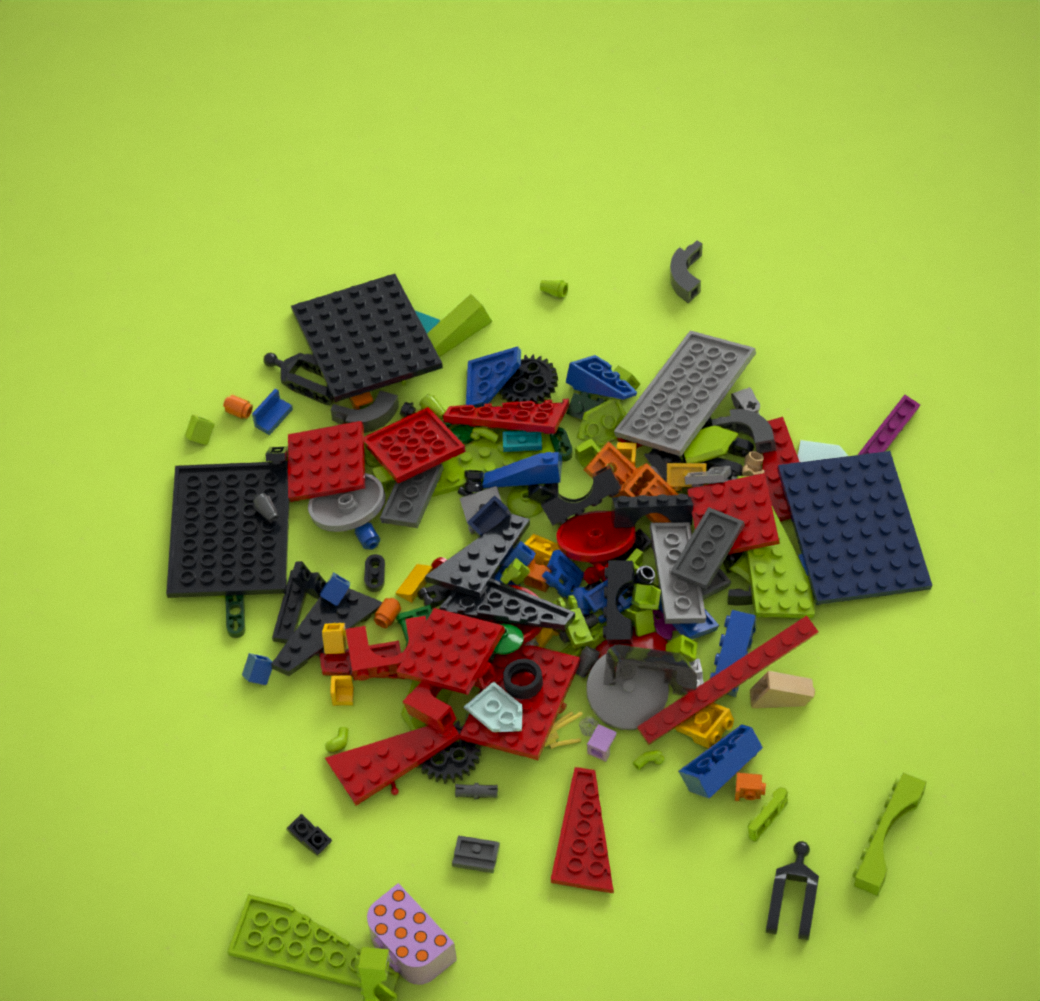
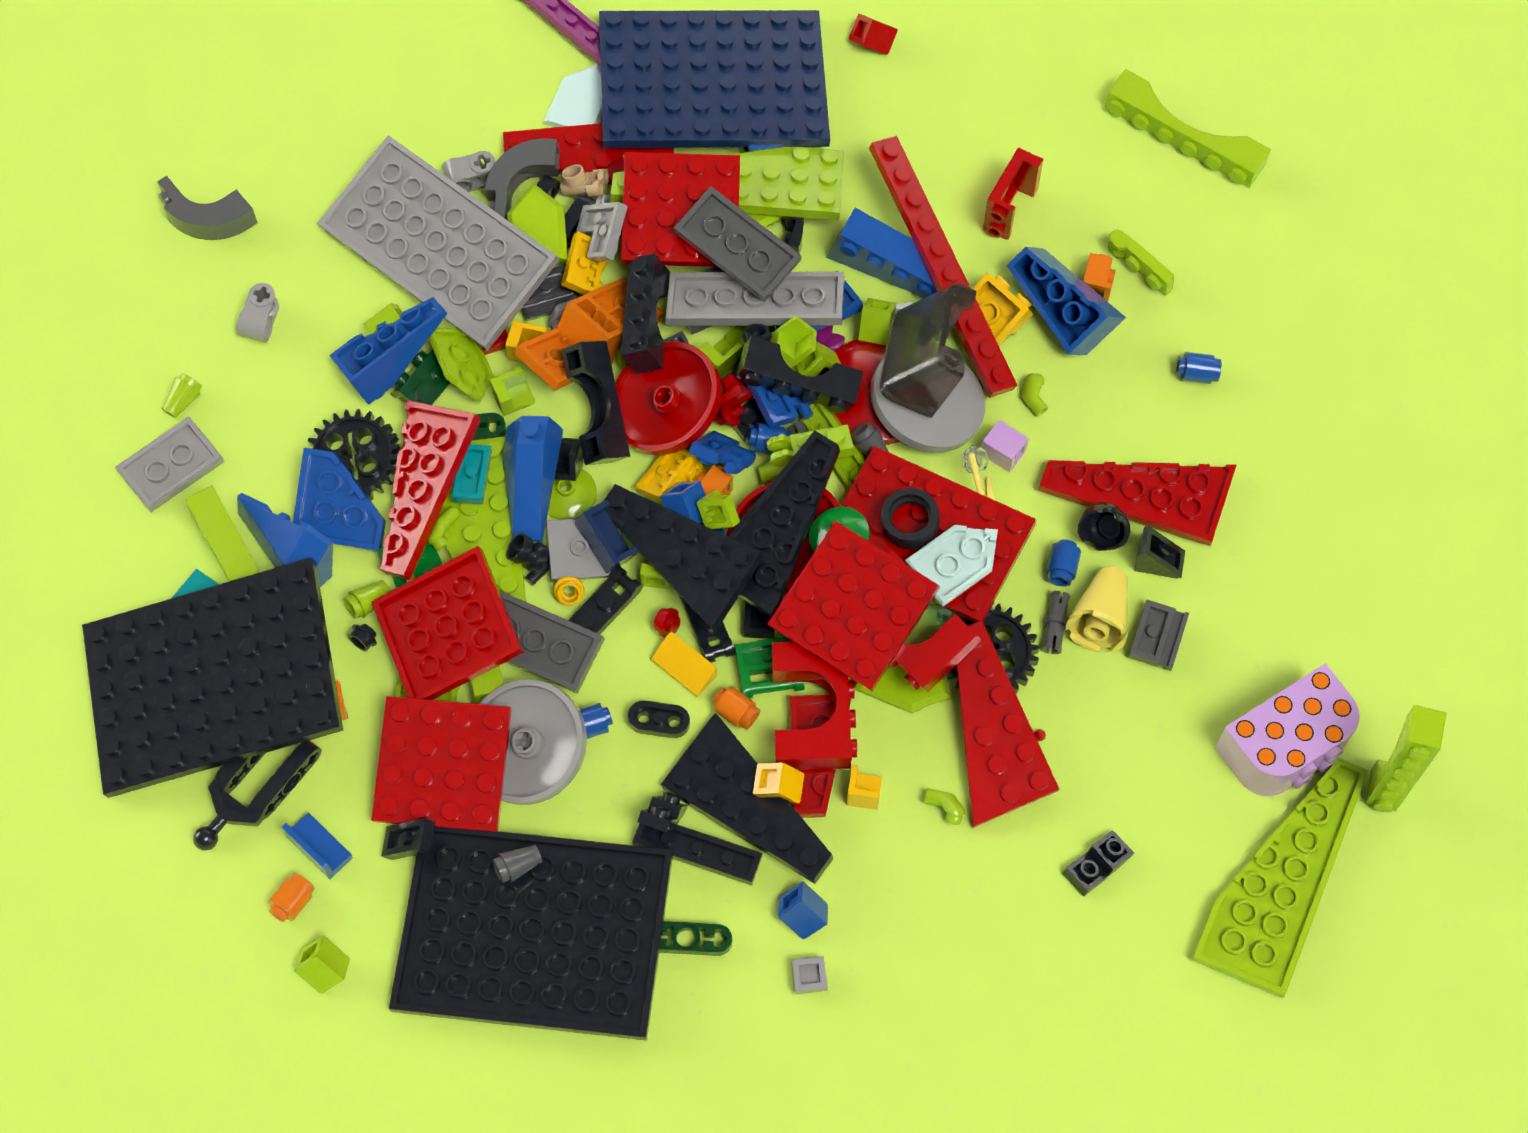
camera: 85 degrees left, 10 degrees up
(216, 678) = (809, 975): none -> light grey plate
(335, 589) = (690, 773): blue panel -> none
(372, 417) = (368, 709): dark grey arch -> none
(447, 531) = (606, 603): none -> black plate
(454, 510) = (568, 598): none -> yellow plate
(457, 359) = (284, 540): none -> blue wedge
(487, 814) = (1102, 612): none -> light yellow cone
(508, 293) = (169, 464): none -> light grey tile
(520, 788) = (1063, 563): none -> blue brick
(535, 846) = (1159, 555): none -> slope
(550, 808) = (1104, 527): none -> black hair
(616, 314) = (258, 313): none -> light grey piece
(688, 860) = (1199, 368): none -> blue brick
(781, 691) = (960, 211): tan slope -> none
(797, 872) = (1269, 237): black piece -> none
(800, 715) = (1020, 175): none -> red panel
(920, 621) = (873, 34): none -> red panel

